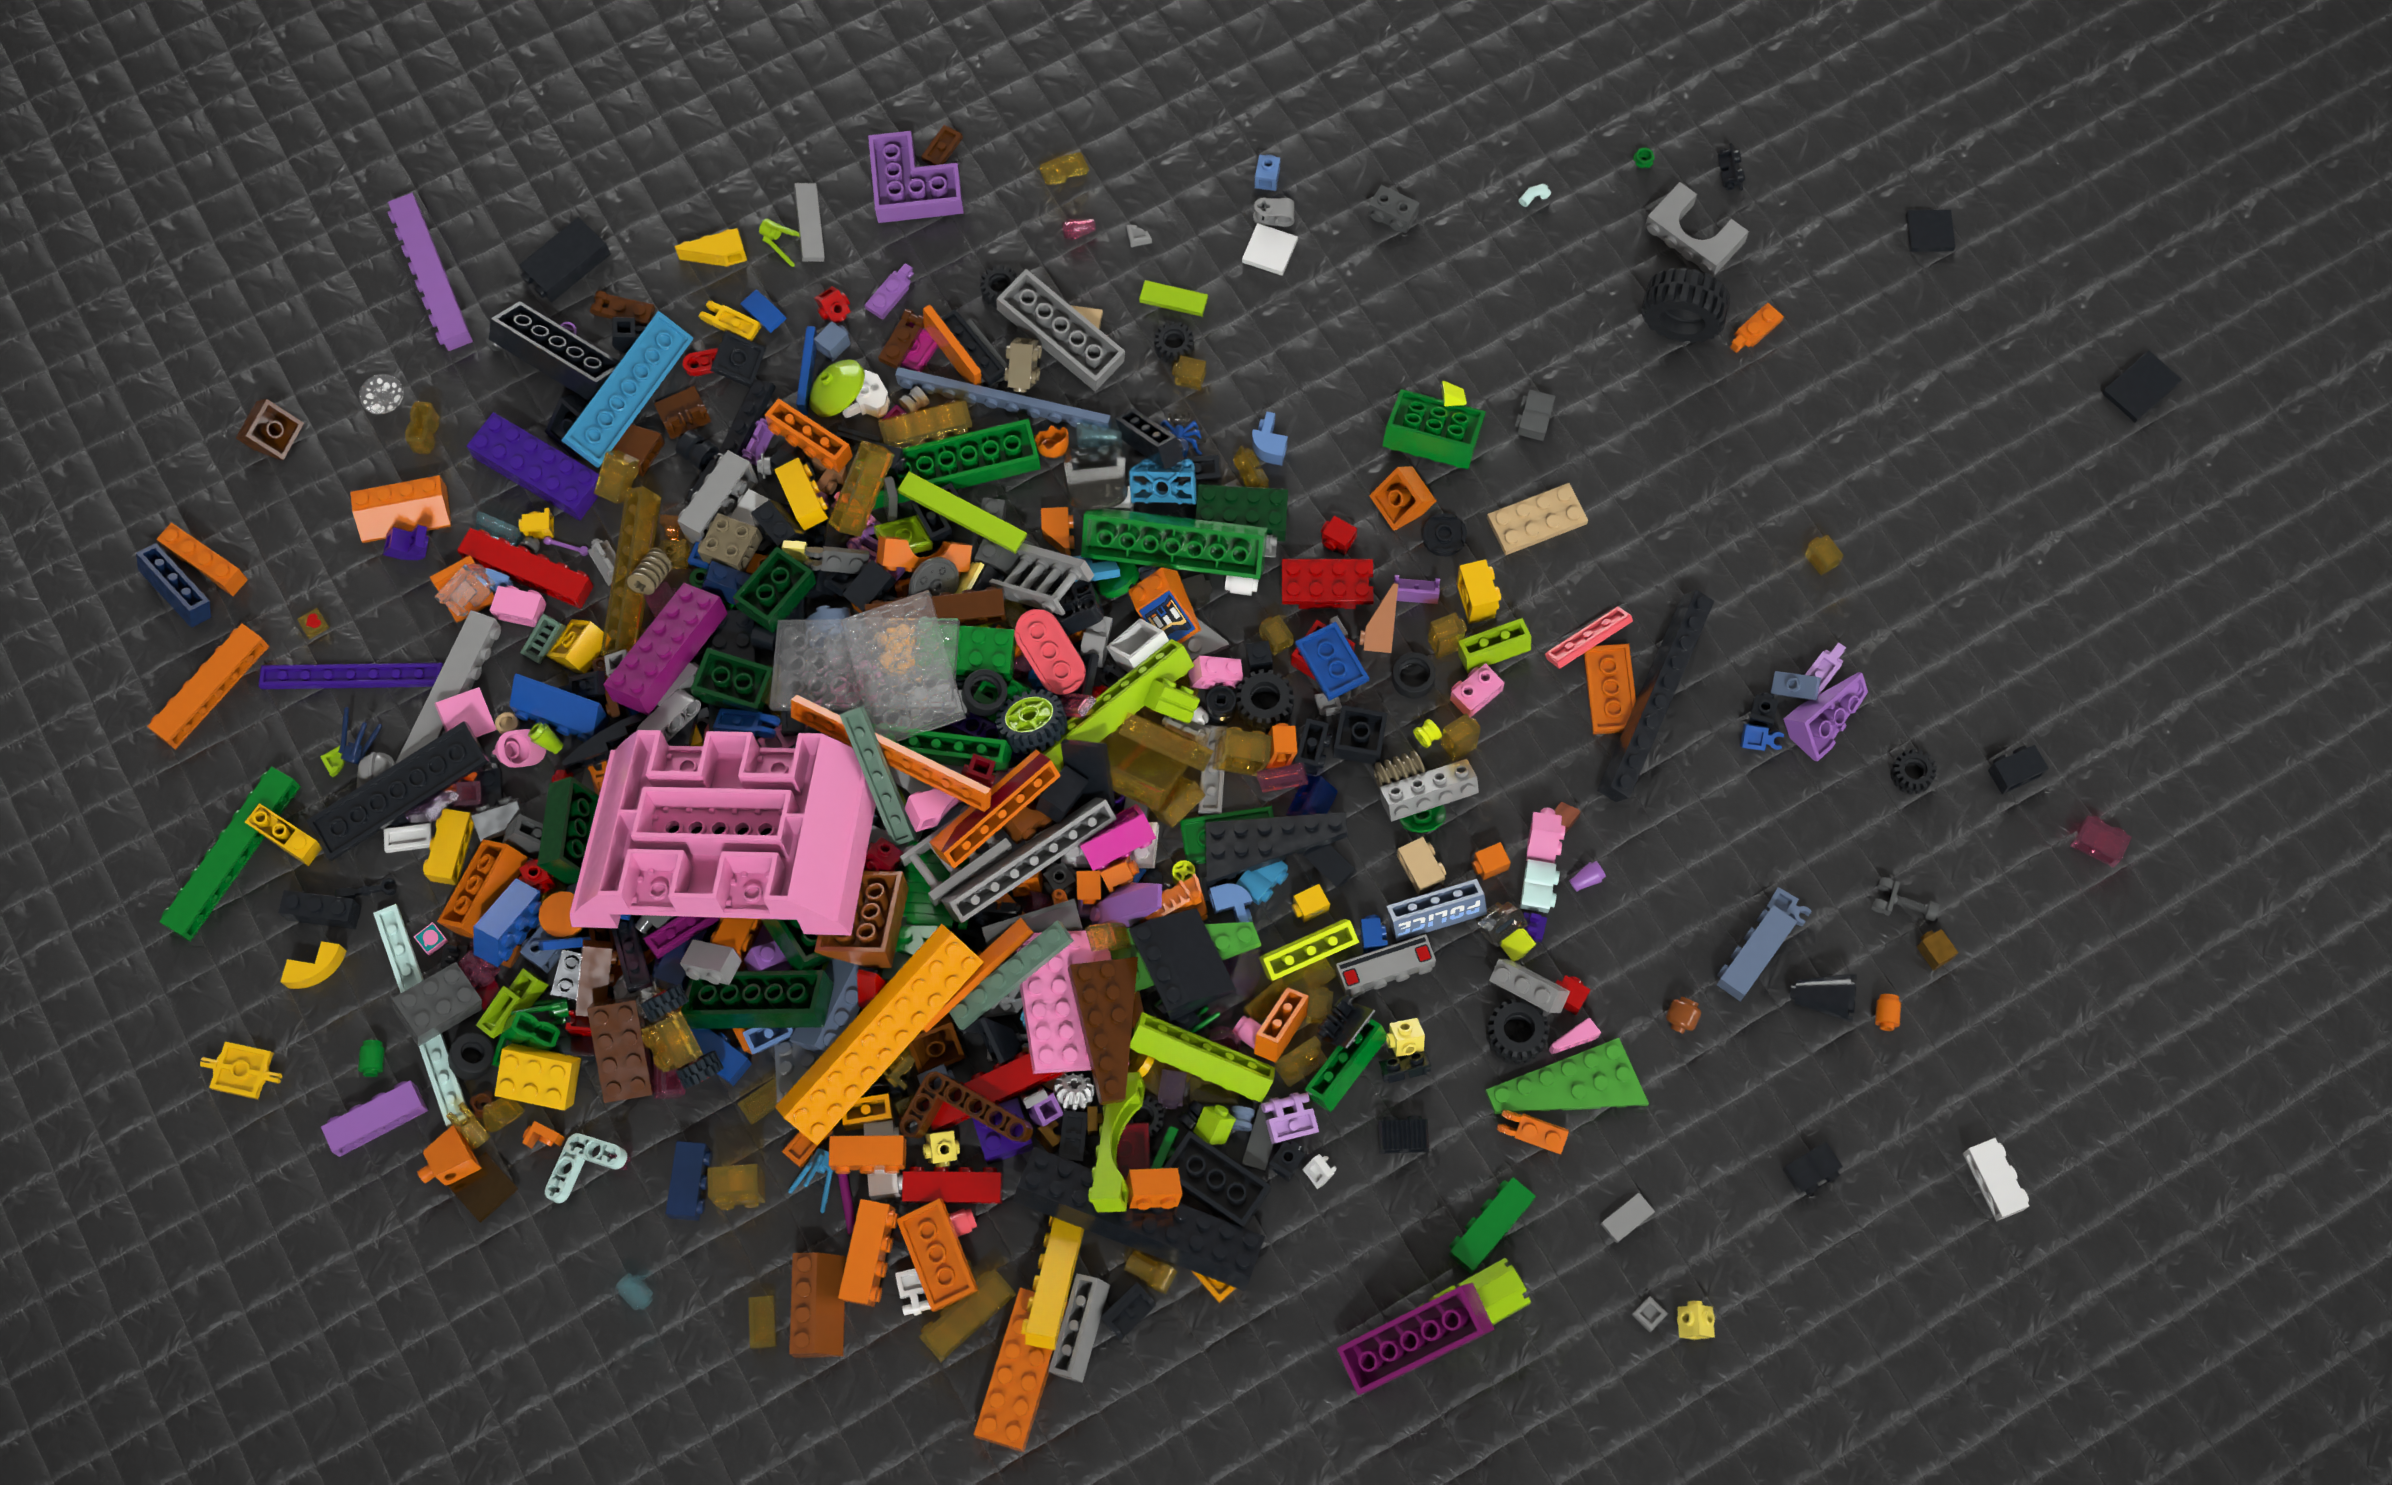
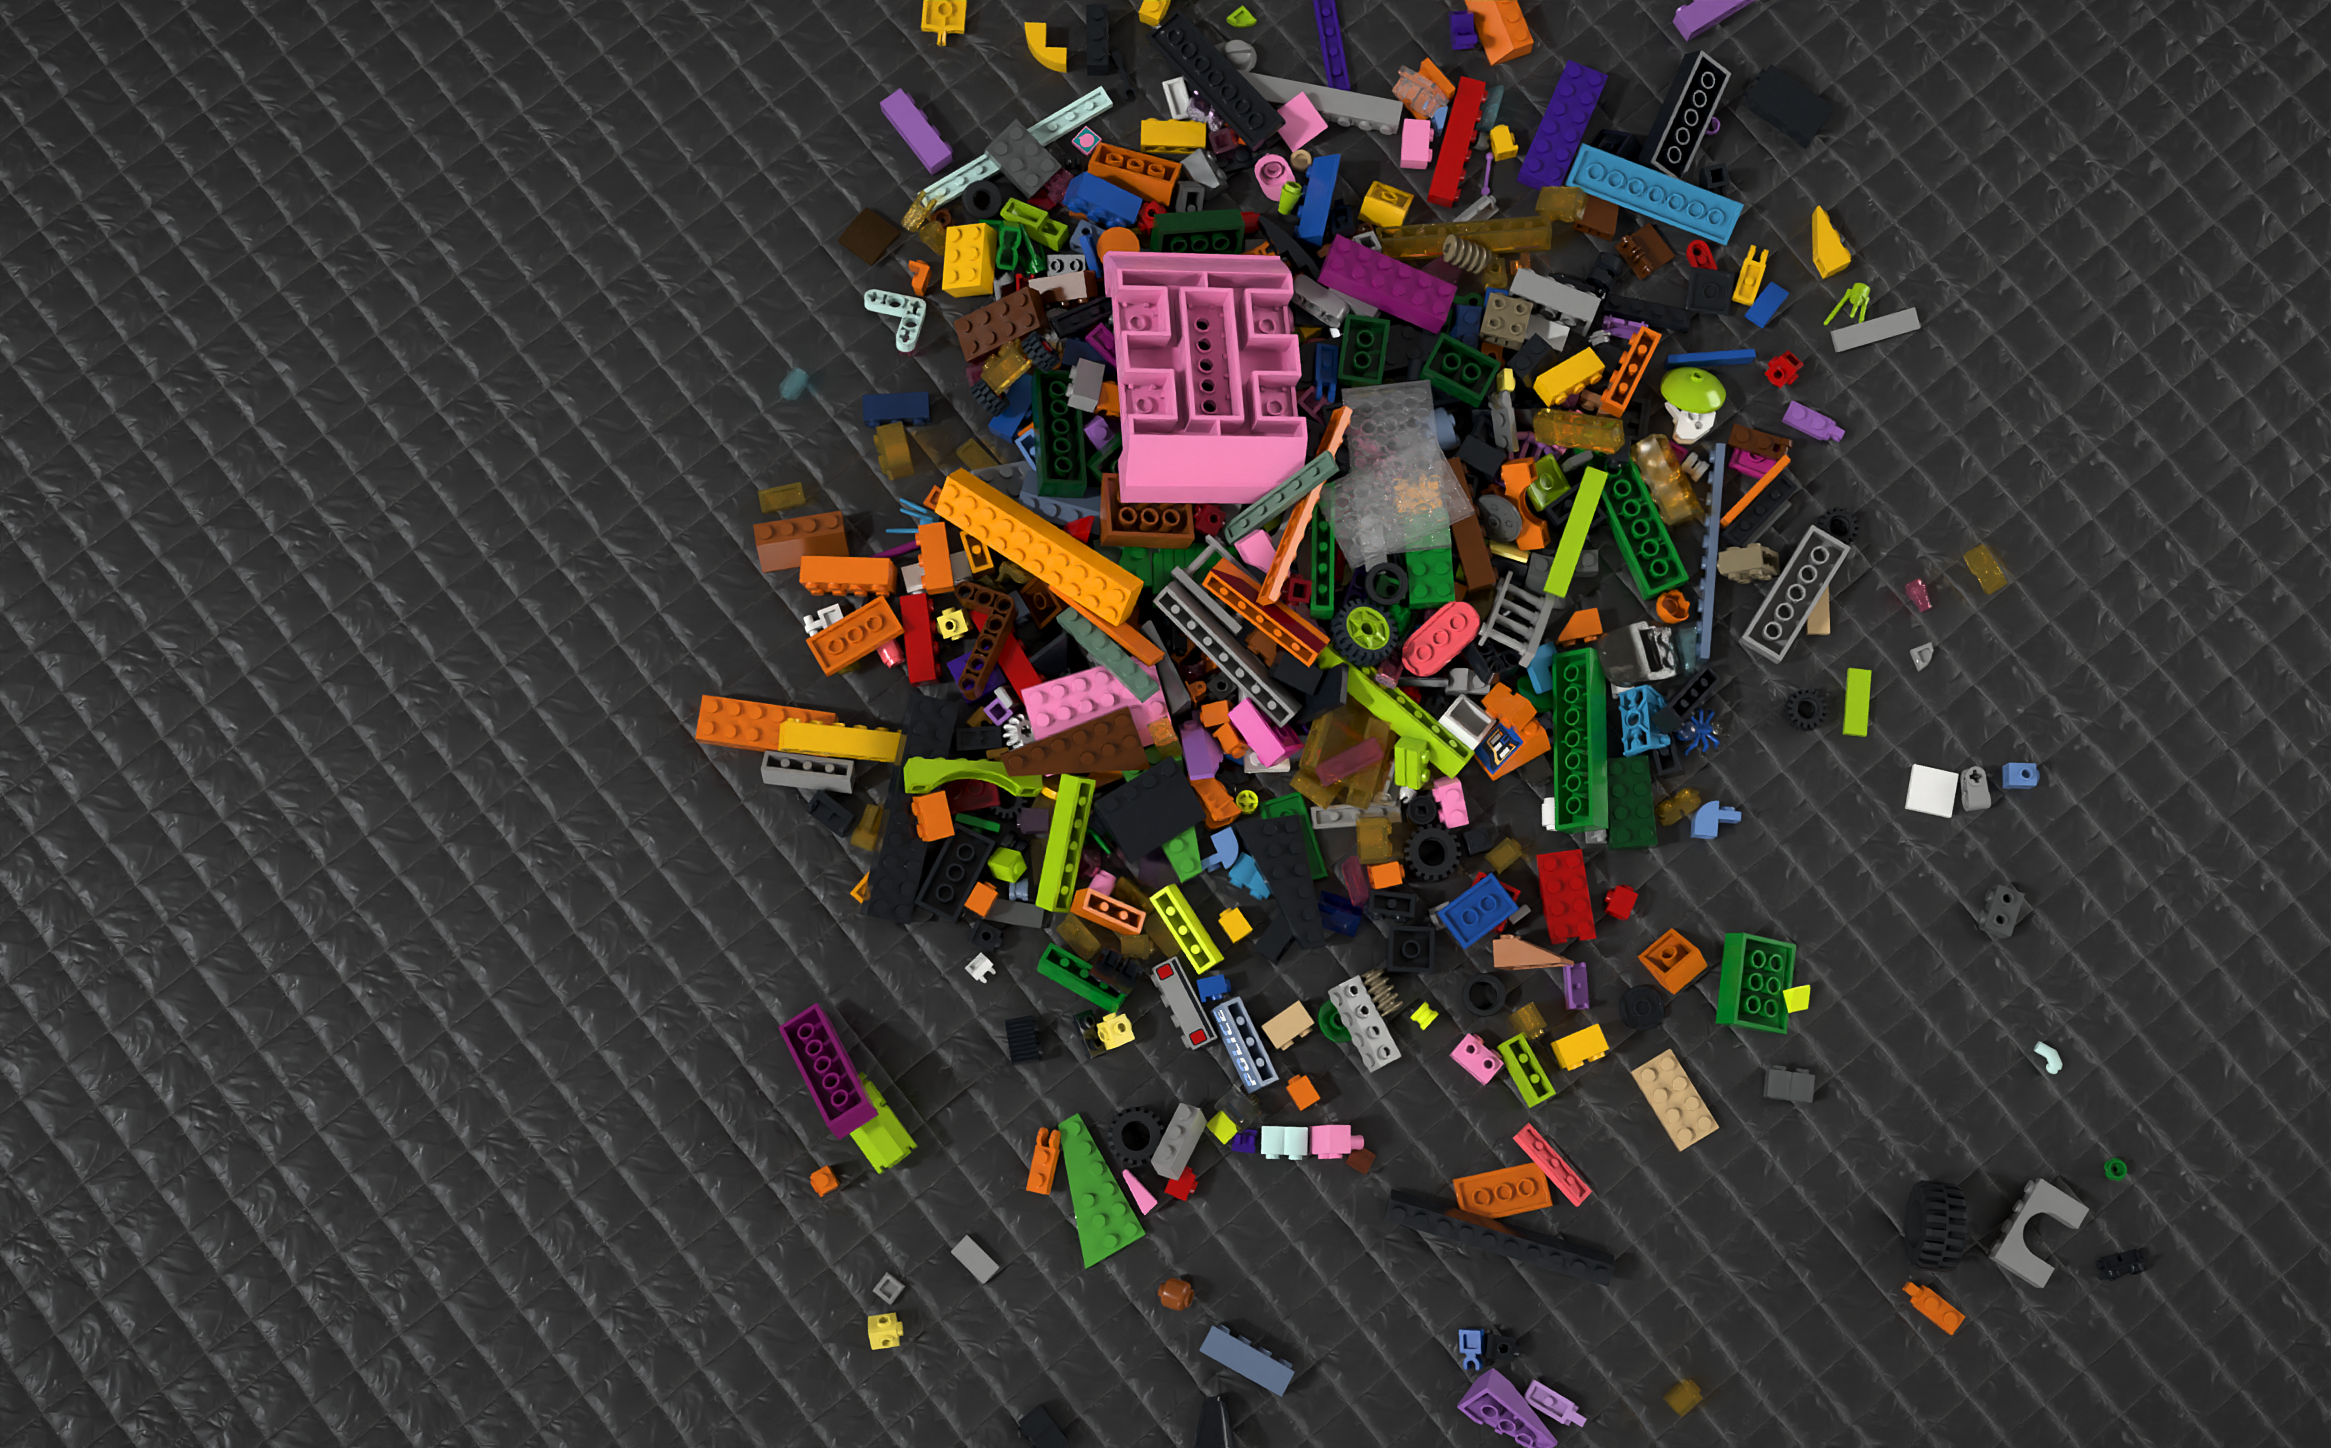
camera: 80 degrees right, 10 degrees up
(353, 752) = (1250, 32): dark blue plant -> none
(371, 1058) = (969, 116): green brick -> none
(422, 427) = (1582, 15): clear yellow brick -> none
(449, 1158) = (887, 202): orange torso -> none
(536, 634) = (1400, 169): sand green slope -> none
(622, 308) = (1746, 172): reddish brown plate -> none
(832, 340) = (1746, 377): sand blue brick -> none
(908, 190) = (1927, 414): medium lavender brick -> none
(942, 146) = (1986, 443): reddish brown plate -> none
(967, 1315) = (808, 672): clear yellow brick -> none
(1134, 598) = (1509, 709): none -> orange brick
(1161, 758) = (1349, 761): none -> clear pink tile
(1189, 372) = (1774, 730): clear yellow brick -> none
(1204, 642) = (1484, 787): light grey wing -> none
(1248, 1155) = (982, 899): none -> orange brick
(1292, 1125) = (1018, 936): lavender plate -> none
(1460, 737) = (1422, 1048): clear yellow brick -> none
(1492, 1225) = (949, 1132): green brick -> none
(1529, 1367) = (824, 1180): none -> orange brick
(1588, 876) = (1301, 1188): medium lavender cone -> none
(1787, 903) = (1301, 1385): sand blue plate -> none
(1795, 685) = (1531, 1378): sand blue plate -> none

